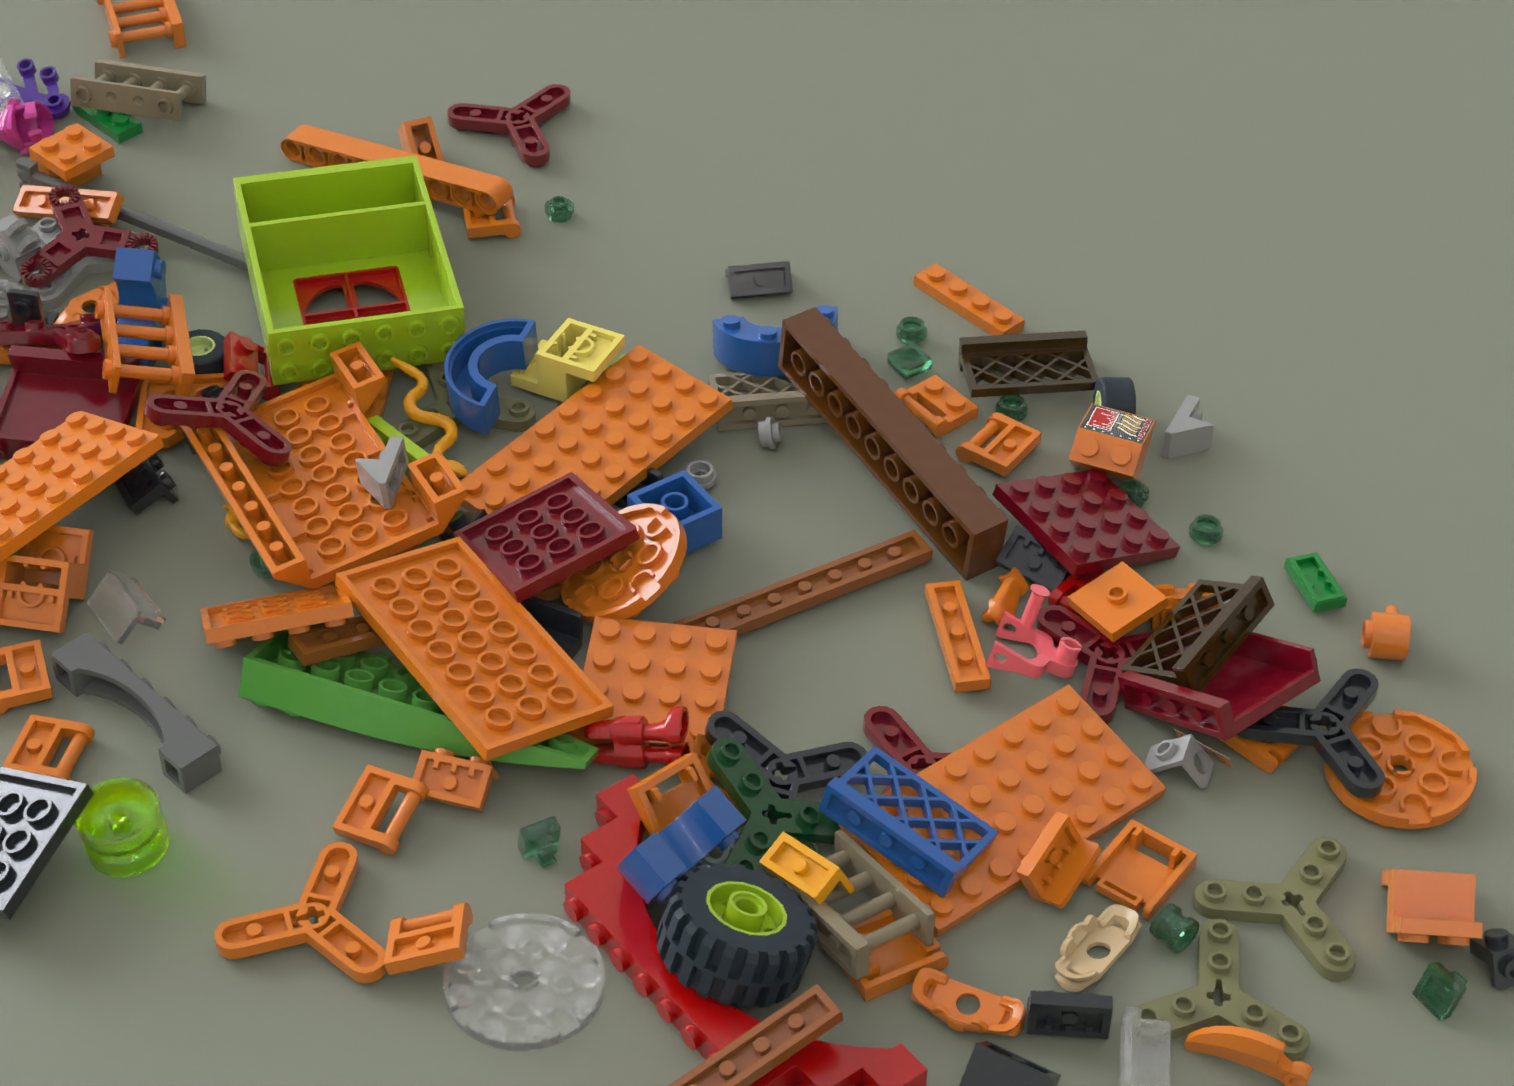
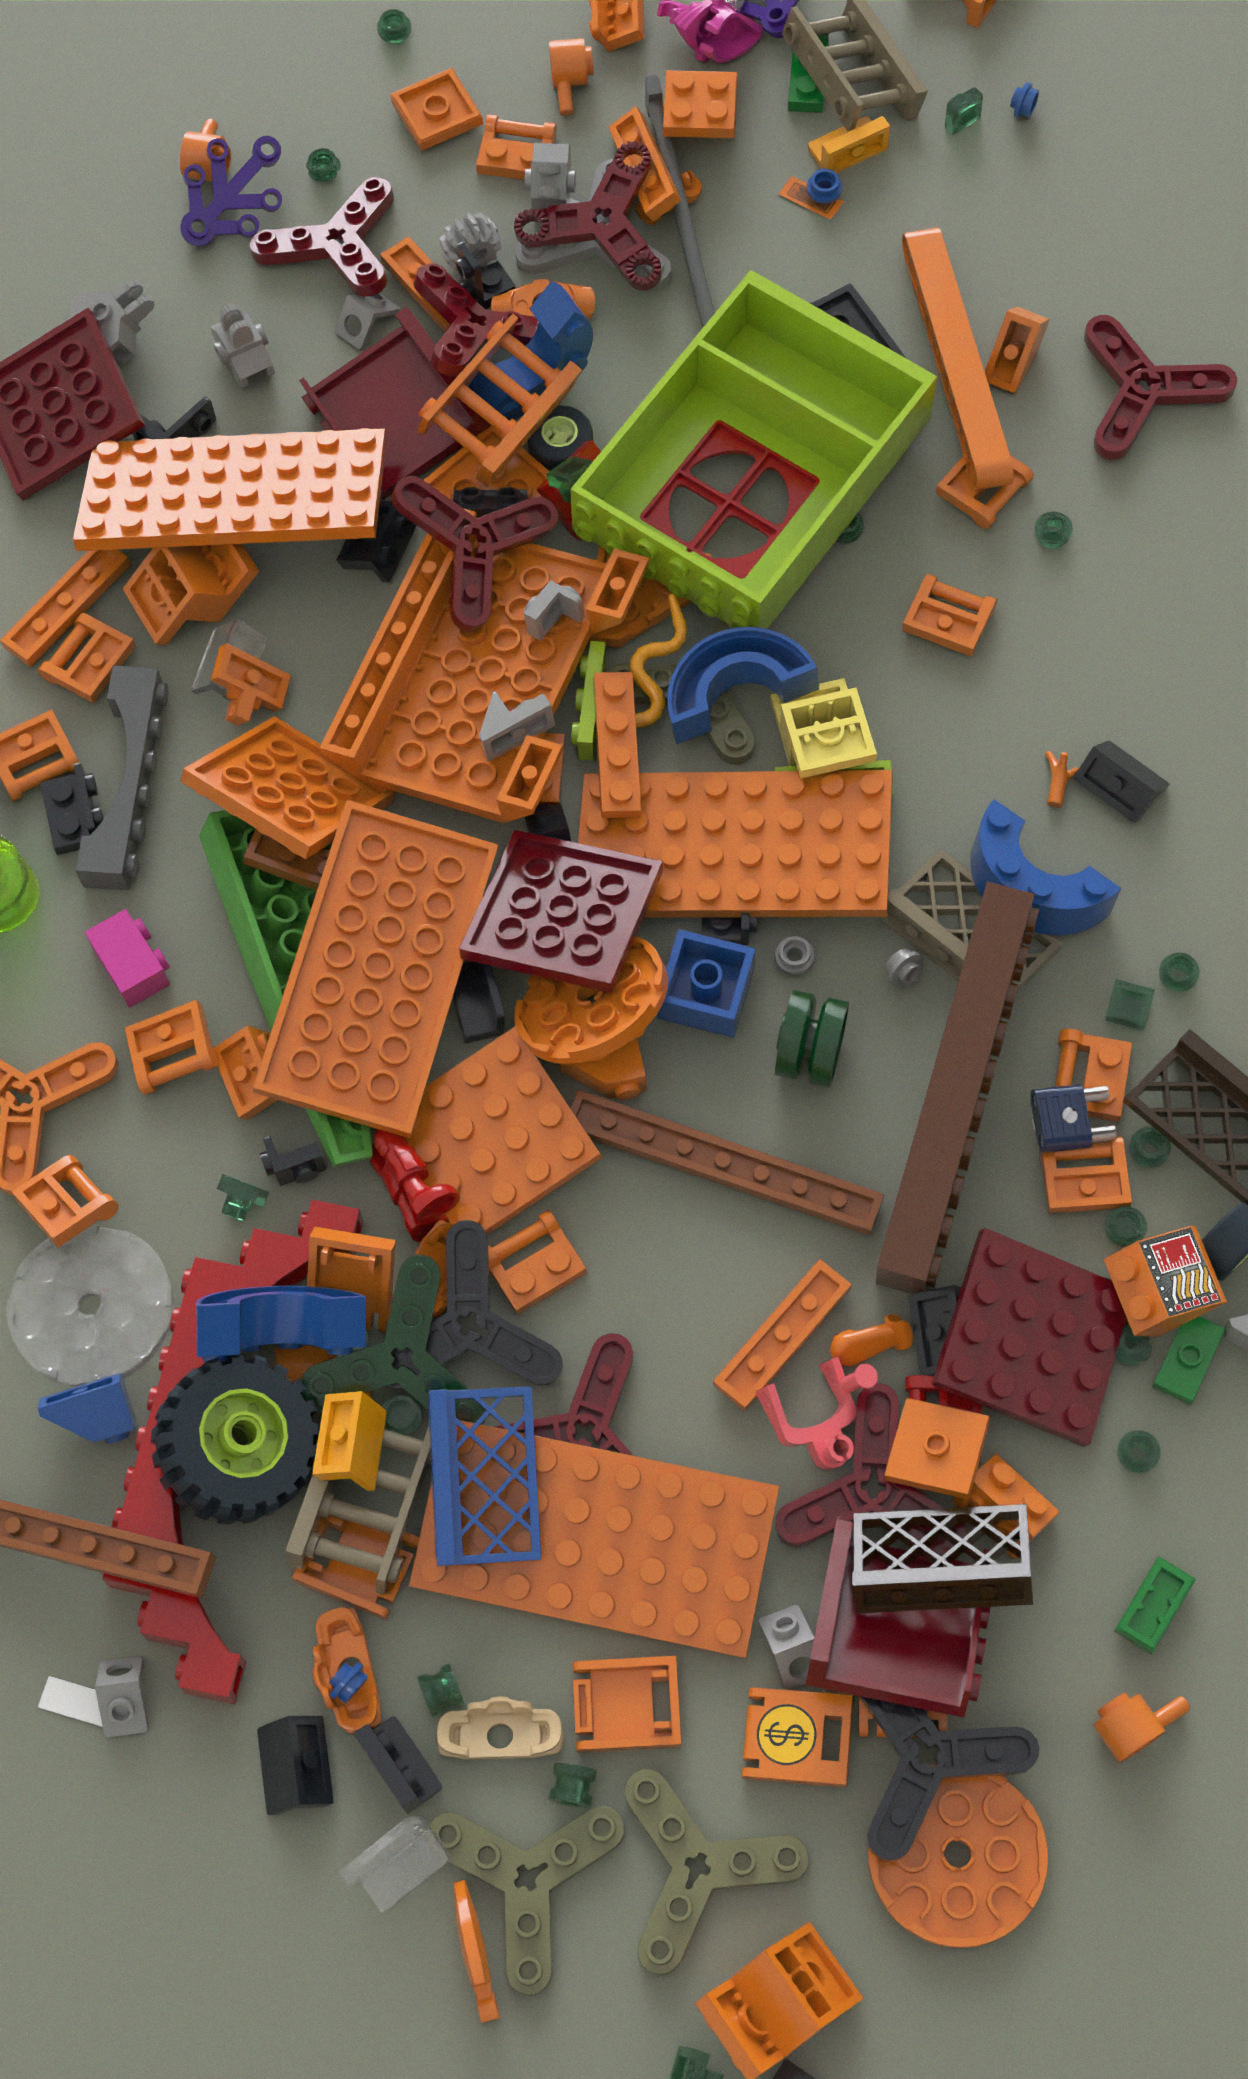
camera: 55 degrees right, 25 degrees up
(121, 752) = (71, 809): none -> black bracket
(164, 596) = (248, 683): none -> orange hinge
(184, 135) = (844, 149): none -> light orange panel
(192, 169) = (797, 192): none -> orange sticker
(197, 154) = (824, 179): none -> blue plate
(235, 76) = (963, 110): none -> clear green plate
(249, 348) = (567, 474): none -> clear green tile
(266, 52) = (1024, 100): none -> blue plate
(279, 792) = (128, 958): none -> dark pink brick
(329, 402) = (548, 607): none -> light grey bracket
(458, 450) = (617, 745): none -> orange plate
(550, 801) = (296, 1165): none -> black bracket
(558, 279) = (946, 623): none -> orange plate
(615, 1018) = (92, 1410): none -> blue slope
(680, 599) = (615, 1076): none -> orange slope
(723, 301) = (1059, 778): none -> orange bar
(774, 488) = (804, 1037): none -> dark green wheel
(781, 717) = (539, 1273): none -> orange plate
(956, 421) = (1063, 1117): none -> dark blue piece
(981, 999) = (347, 1681): none -> blue plate
(1035, 957) = (440, 1690): none -> clear green wheel
(1052, 448) = (1125, 1226): none -> clear green plate
(1057, 862) = (557, 1632): orange bracket -> none
(1168, 477) = (1189, 1359): none -> green plate
(1242, 798) = (789, 1737): none -> orange container

